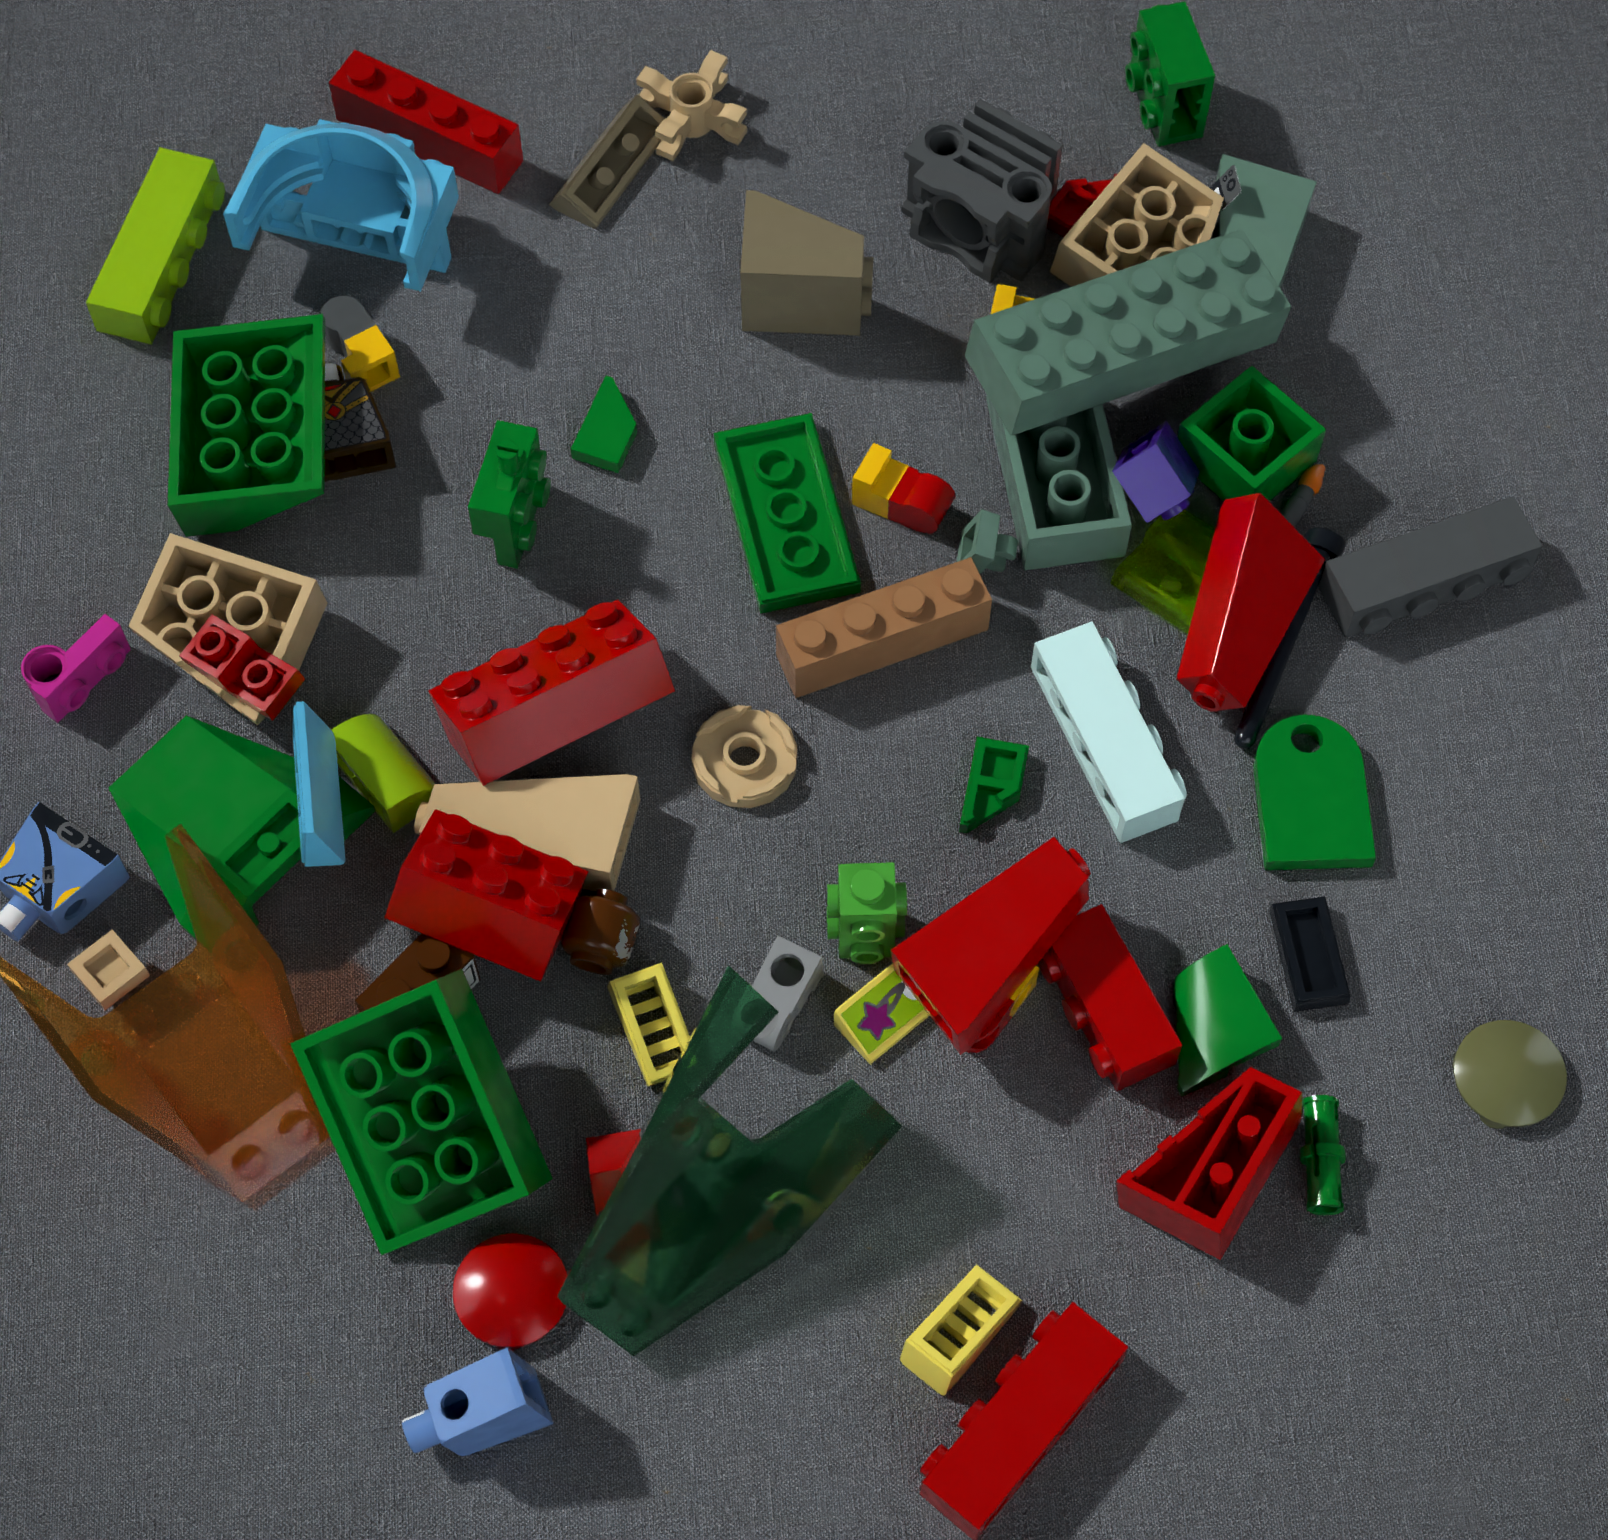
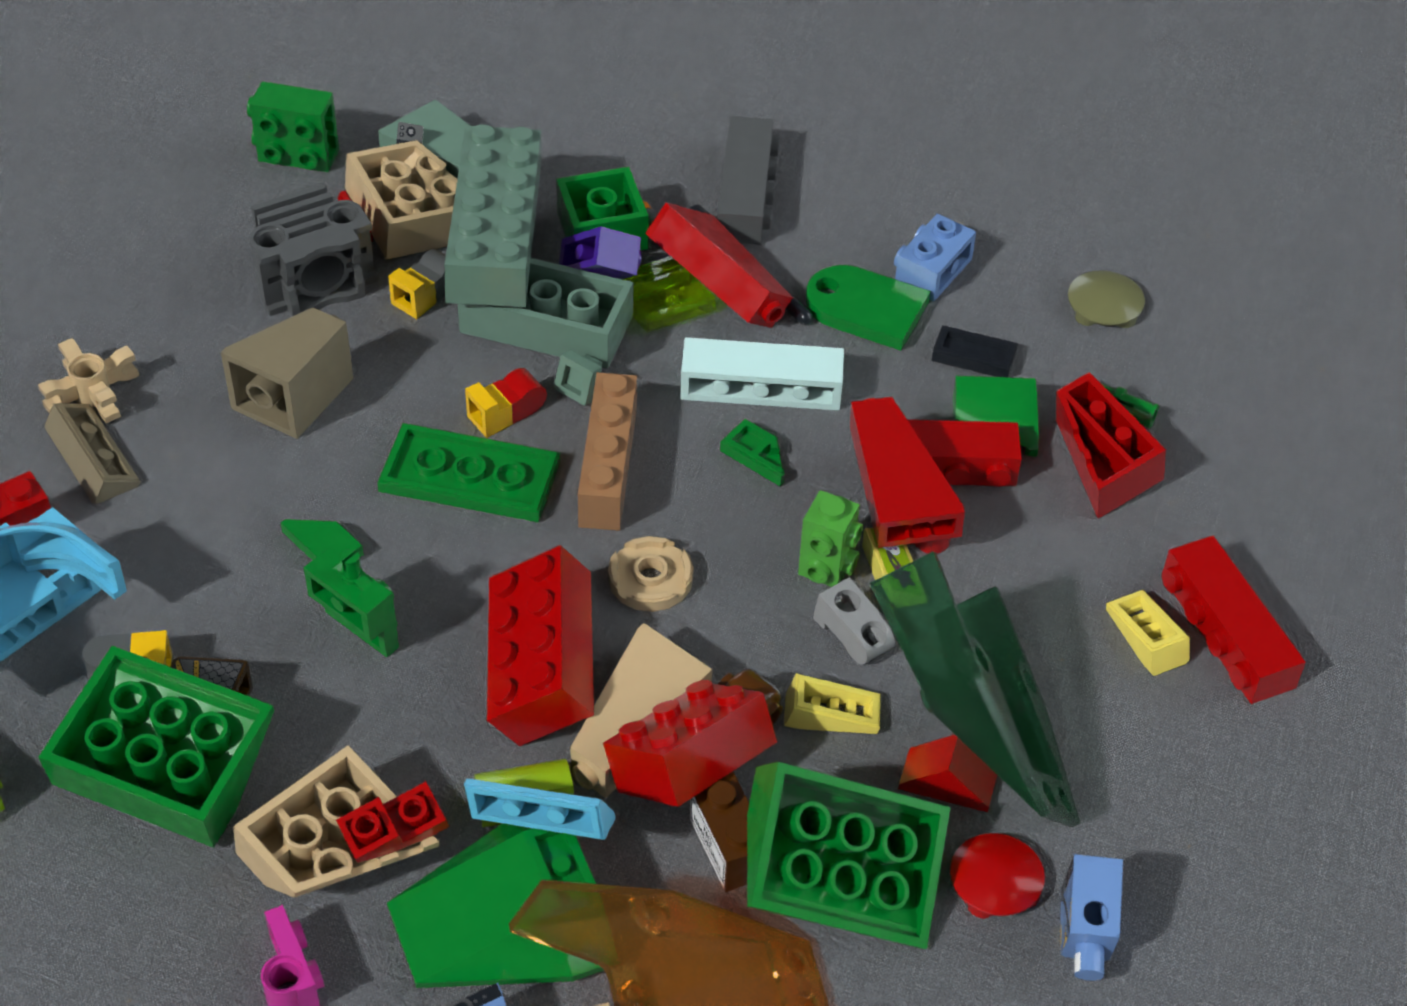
camera: 65 degrees left, 15 degrees down
(1437, 838) = (935, 255): none -> medium blue brick

